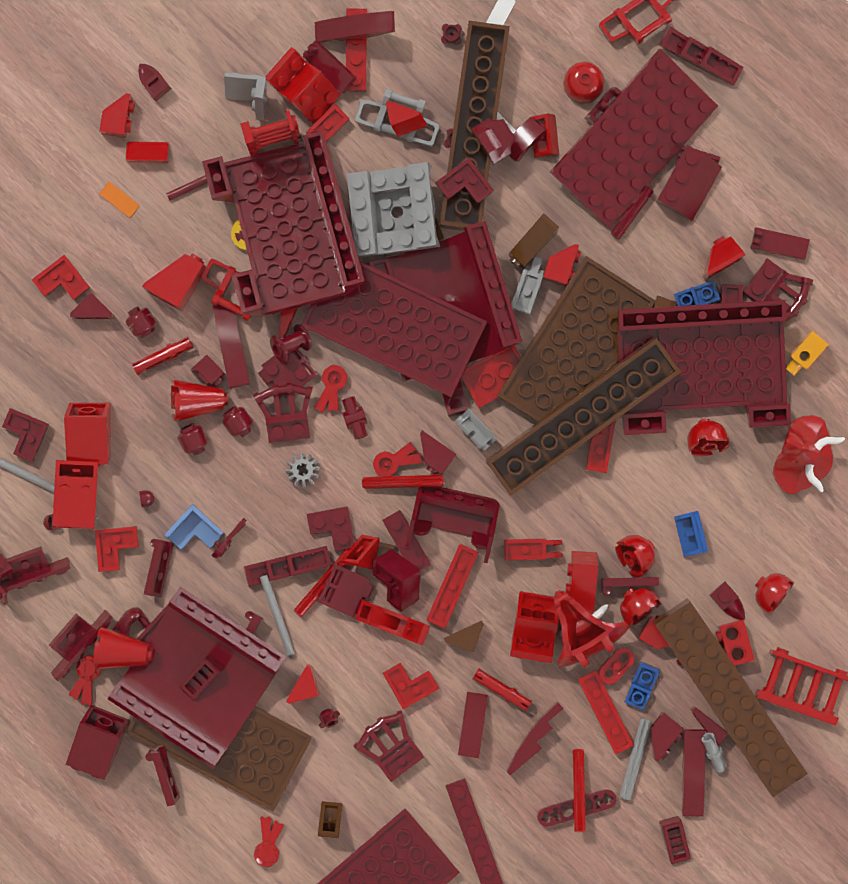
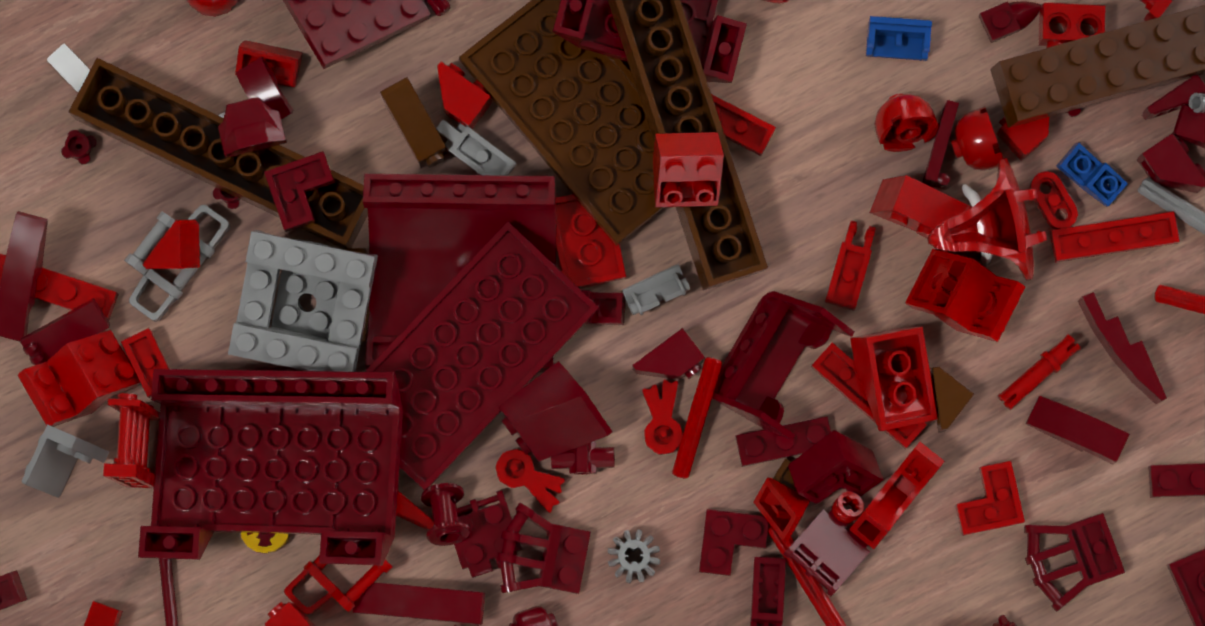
camera: 65 degrees left, 5 degrees down
(371, 597) = (850, 515): none -> red bush
(373, 390) = (553, 415): none -> dark red slope
(468, 598) = (895, 376): none -> red slope
(554, 423) = (687, 169): none -> red slope

